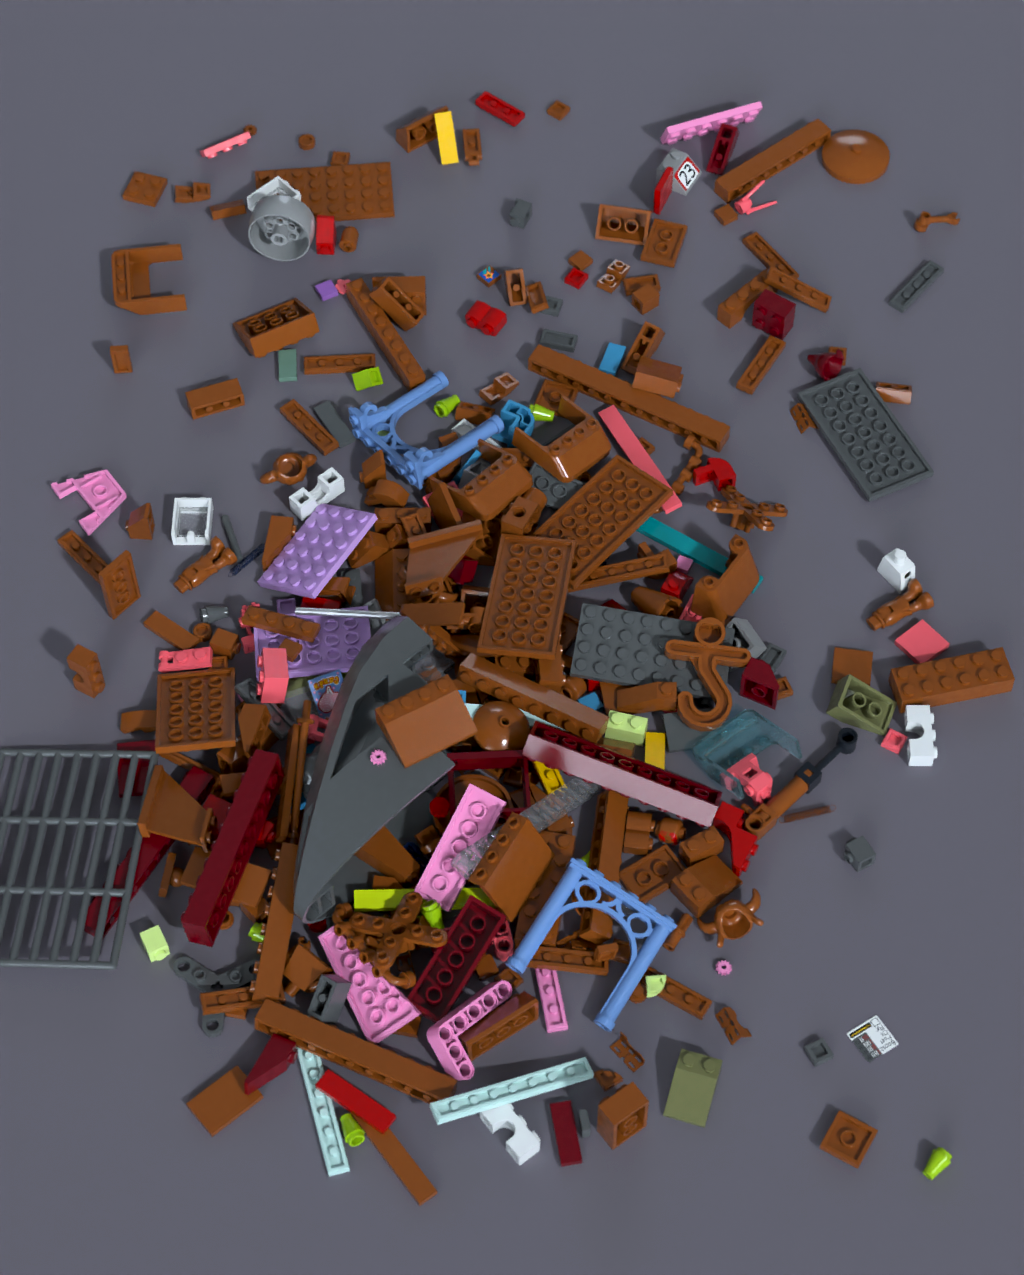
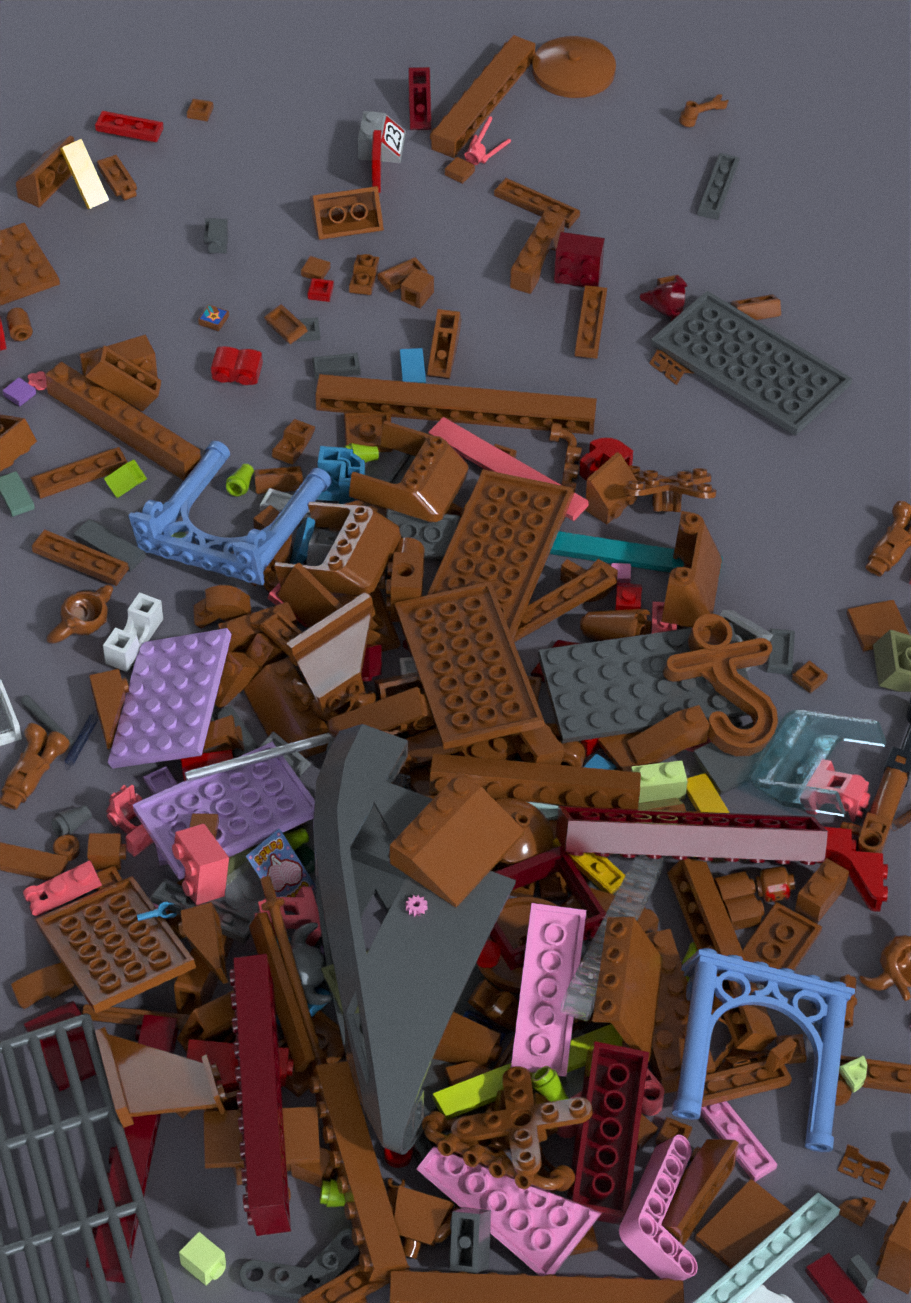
camera: 25 degrees left, 5 degrees down
(170, 875) = (180, 1164): dark orange tile -> none
(235, 699) = (157, 912): none -> dark azure hand
(281, 624) = (174, 799): dark orange plate -> none
(373, 470) = (192, 581): dark orange slope -> none
(515, 286) = (253, 318): dark orange slope -> none
(523, 1057) = (742, 1224): none -> dark orange tile
(658, 377) = (482, 369): dark orange brick -> none
(664, 243) = (405, 220): dark orange plate -> none
(698, 494) = (606, 489): none -> dark orange slope
(704, 885) = (847, 935): dark orange slope -> none
(709, 123) = (394, 72): bright pink plate -> none
(759, 683) = (791, 676): dark red slope -> none
(797, 289) = (591, 225): dark orange tile -> none
(897, 569) = (873, 498): white torso -> none

